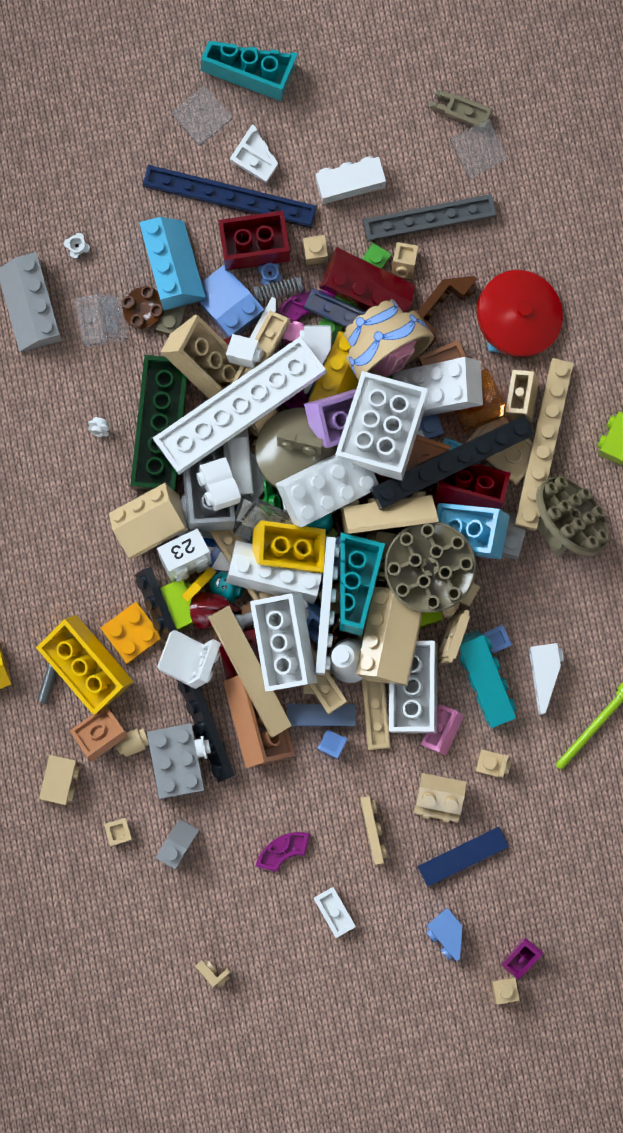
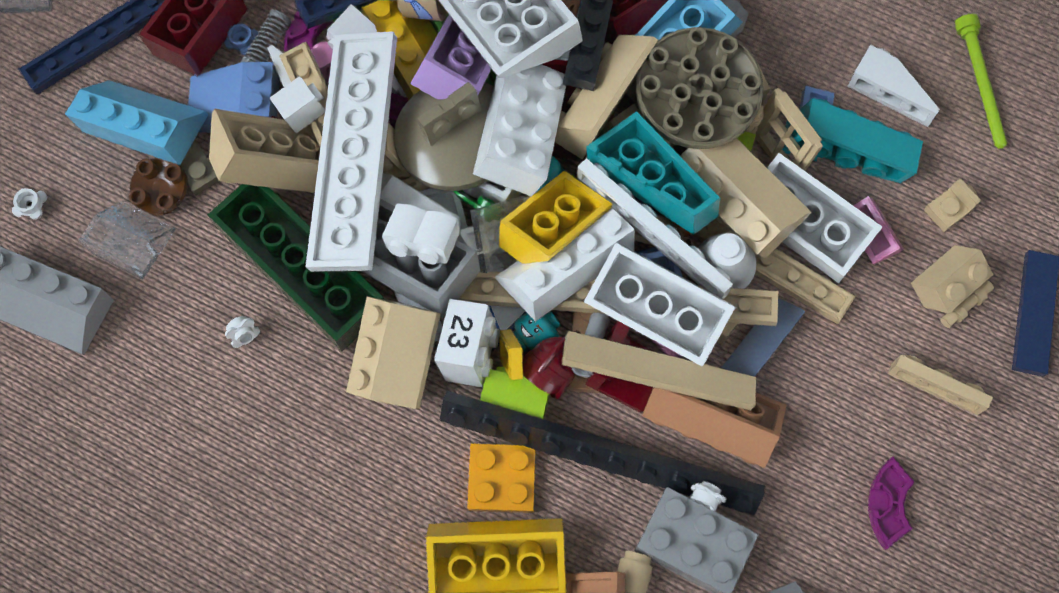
camera: 50 degrees left, 10 degrees down
(188, 659) = (593, 429): white bracket -> none
(332, 744) = (807, 353): medium blue panel -> none
(334, 912) = (1008, 499): white plate -> none

